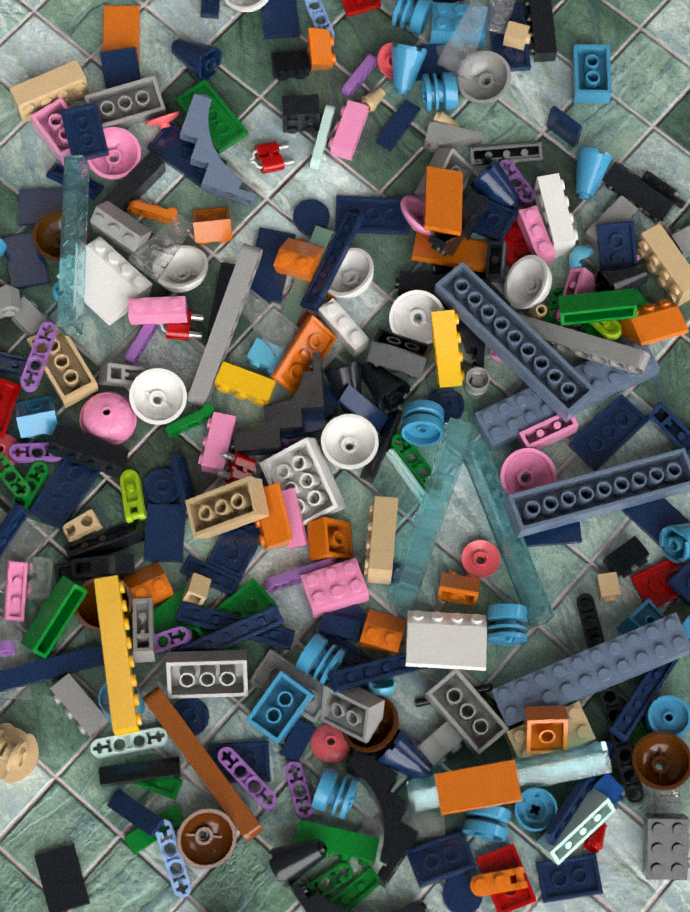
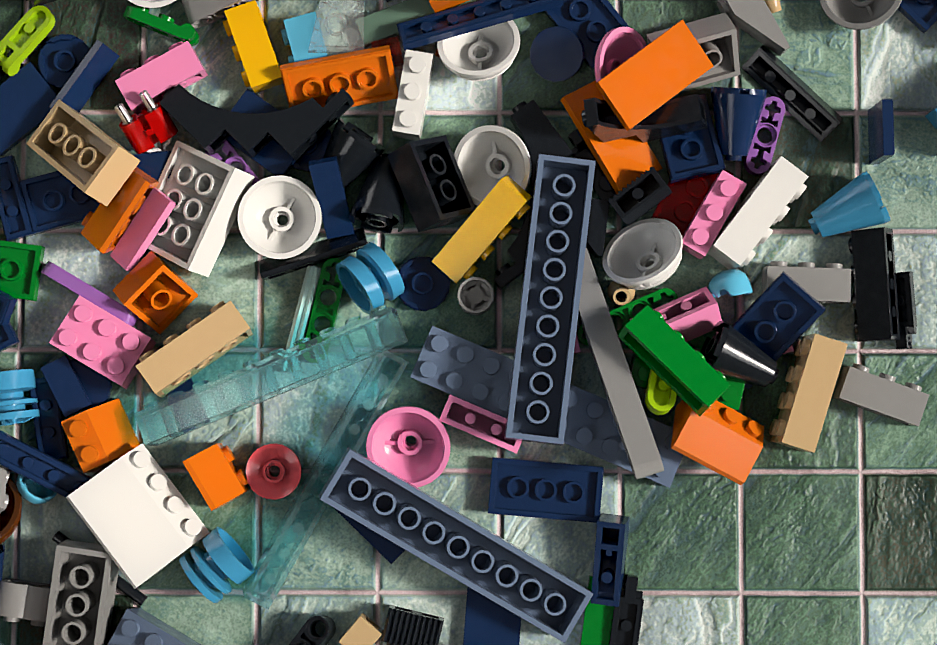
camera: 55 degrees right, 15 degrees up
(385, 242) = (557, 53): none -> dark blue tile

